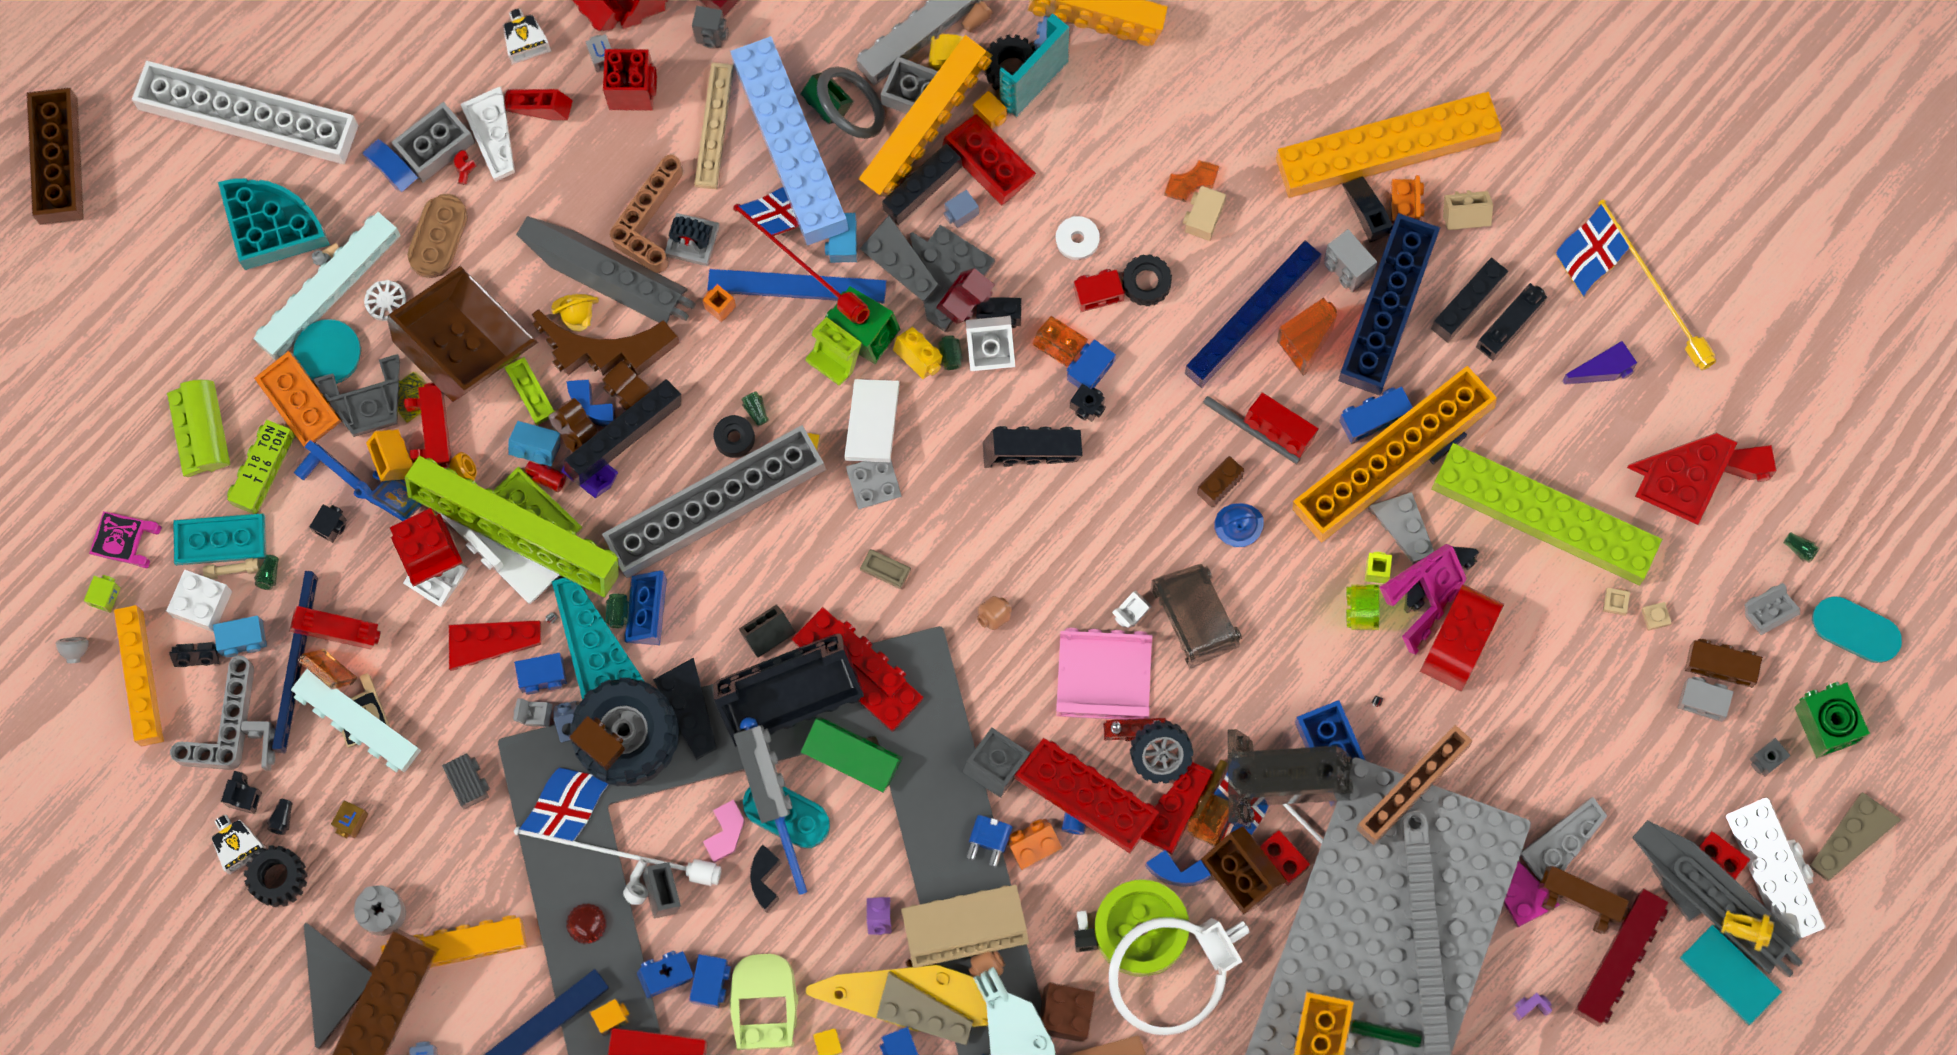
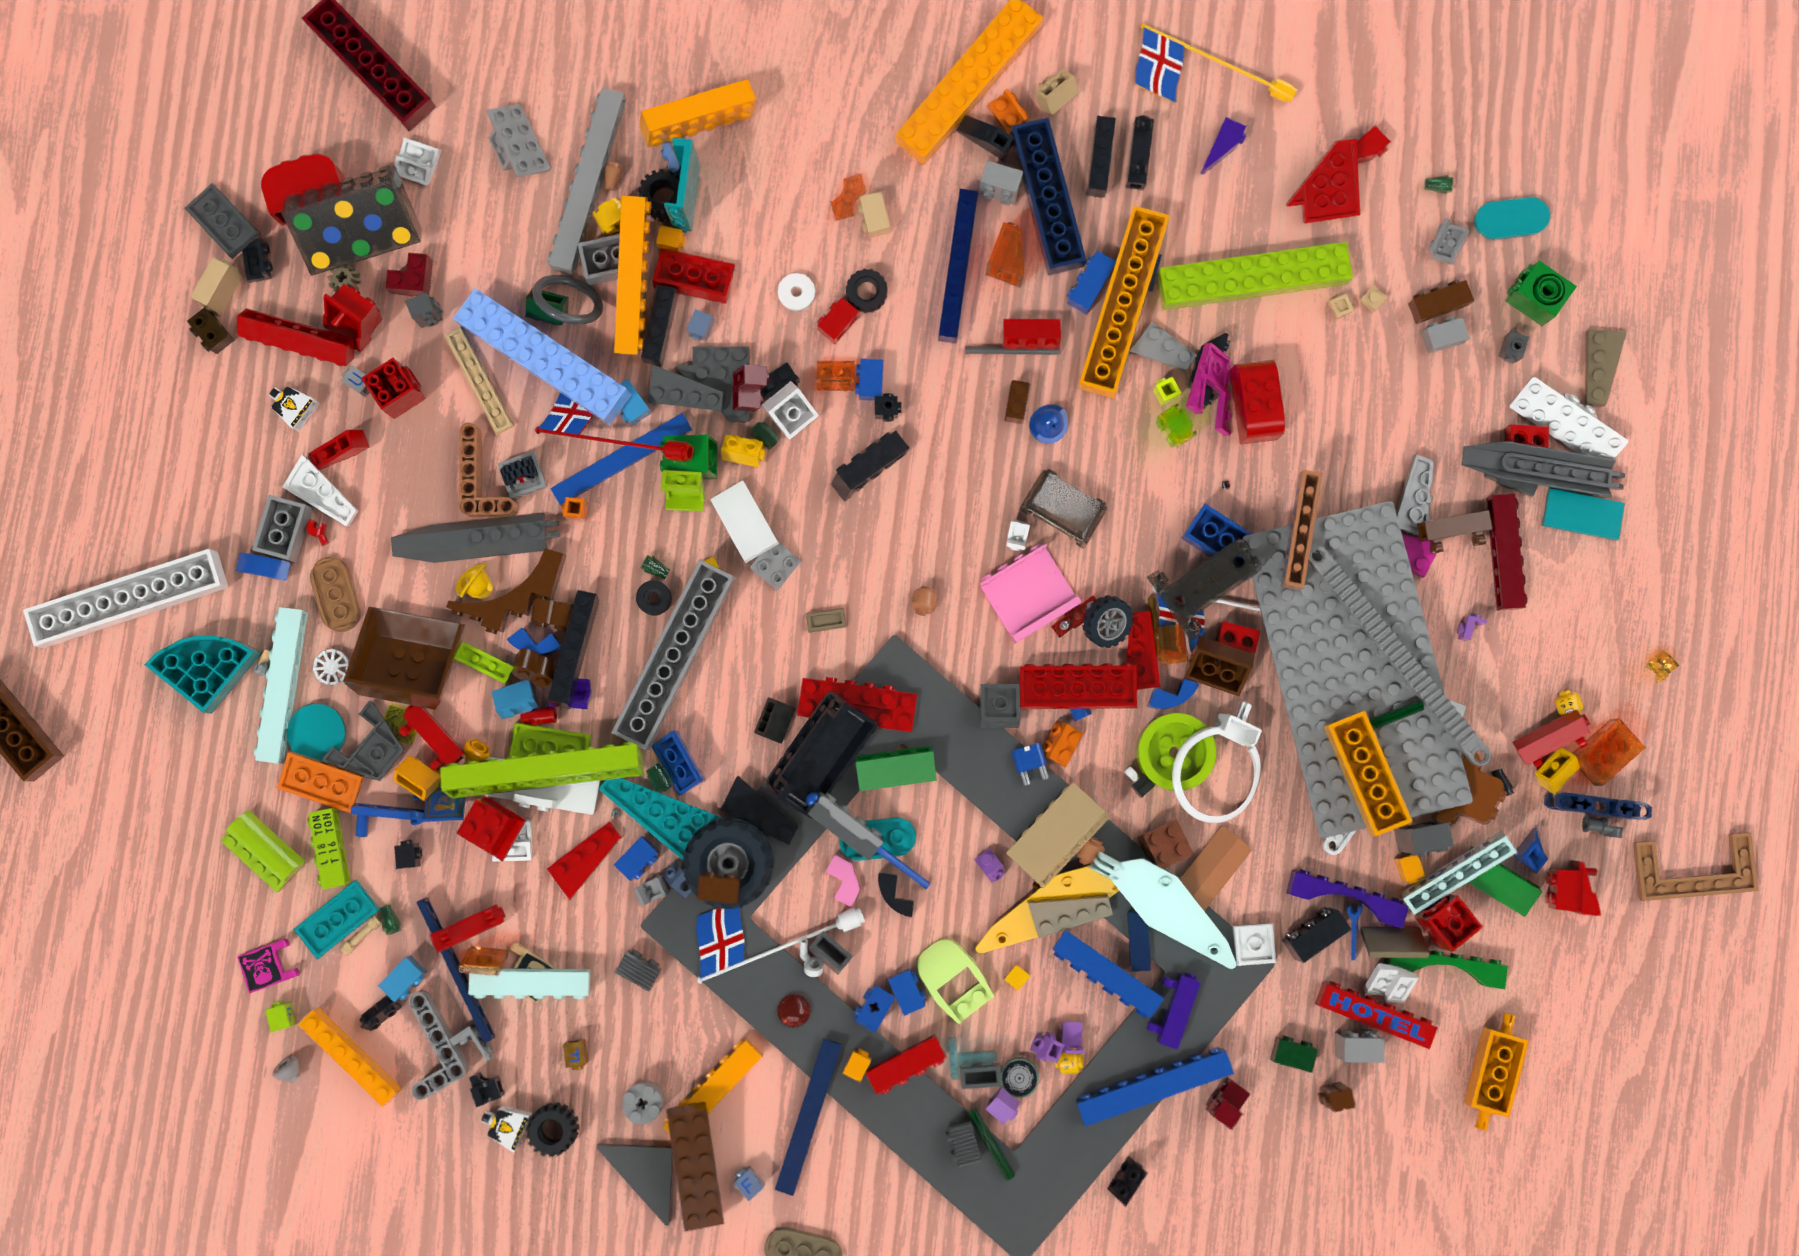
camera: 40 degrees left, 10 degrees up
(199, 600) = (354, 974): white brick -> none
(280, 819) = (526, 1086): black cone -> none
(1749, 928) = (1590, 474): yellow piece -> none

